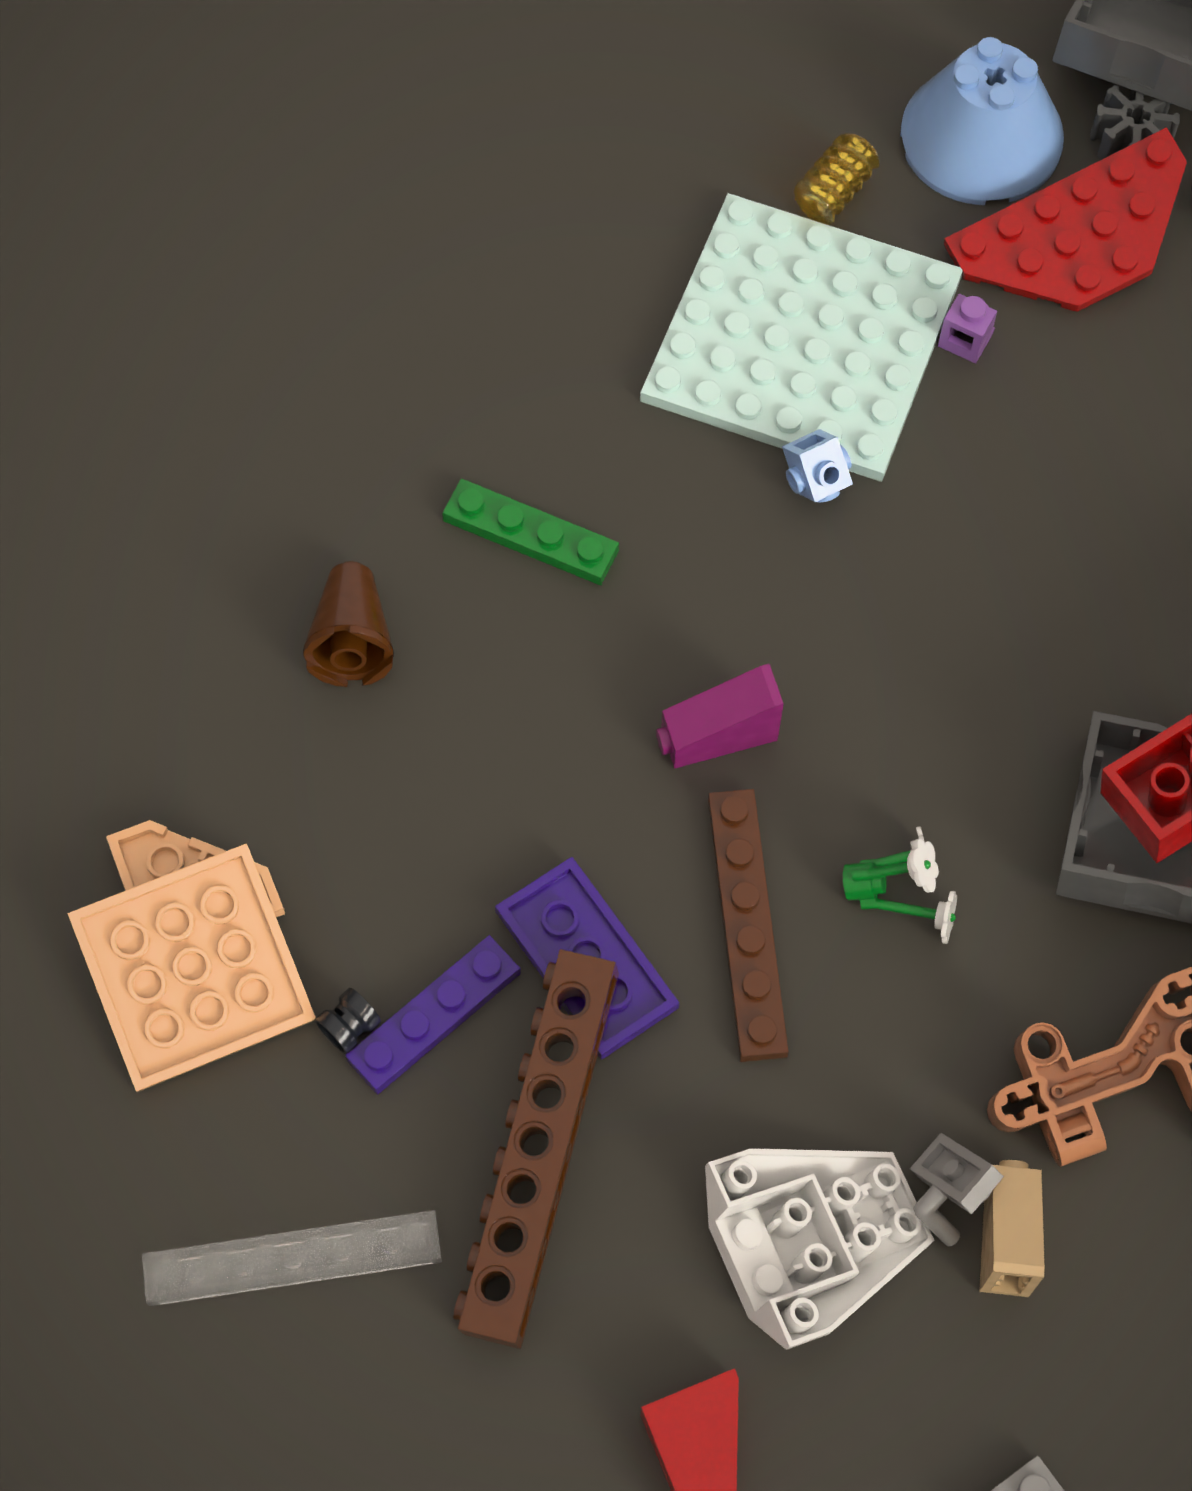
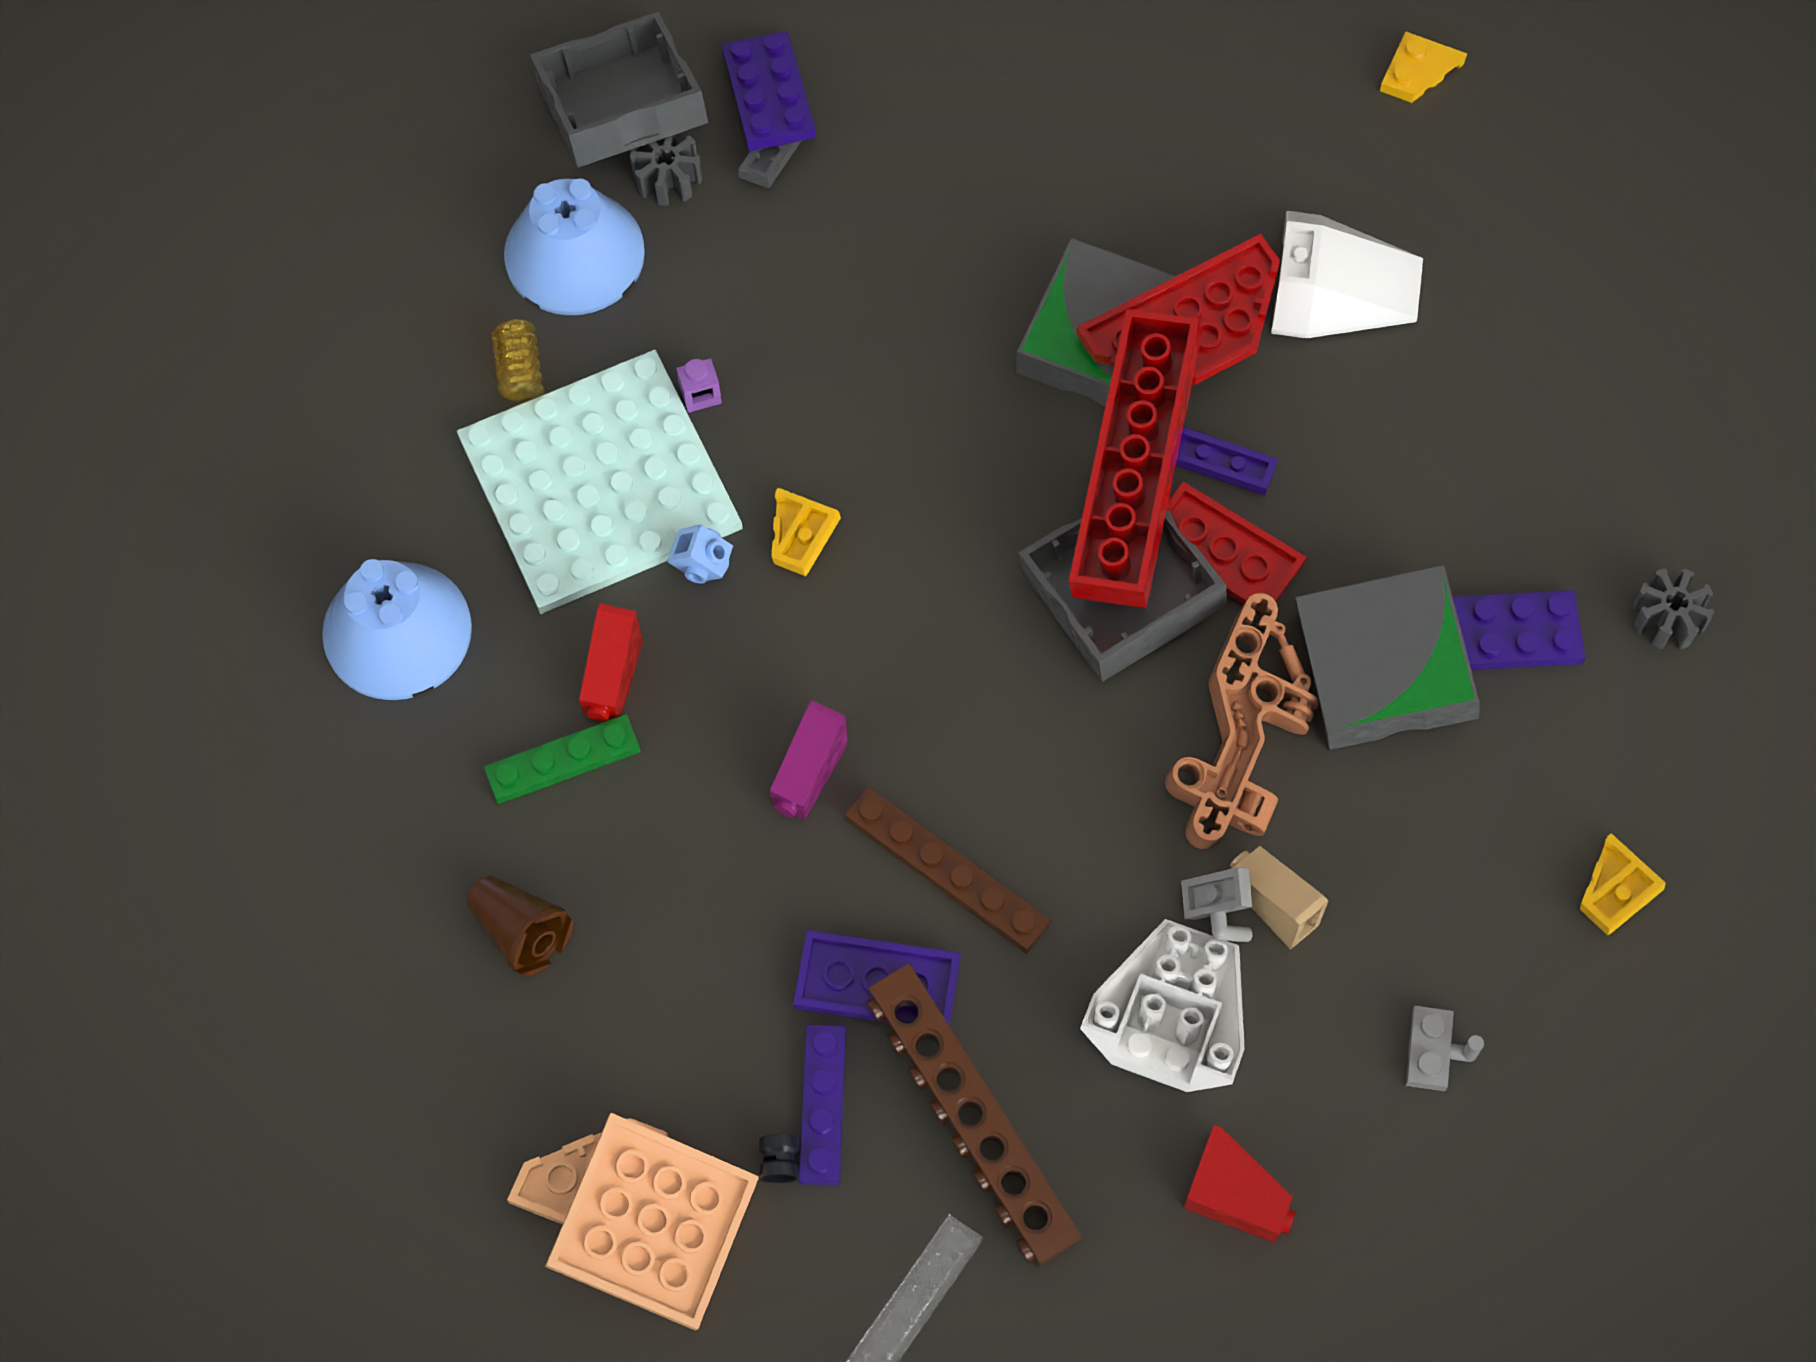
camera: 45 degrees left, 0 degrees up
(512, 306) = (396, 629): none -> light blue cone
(647, 486) = (610, 662): none -> red slope
(868, 879) = (988, 773): green plant -> none
(925, 525) = (800, 531): none -> yellow wing
(1081, 232) = (705, 263): red plate -> none

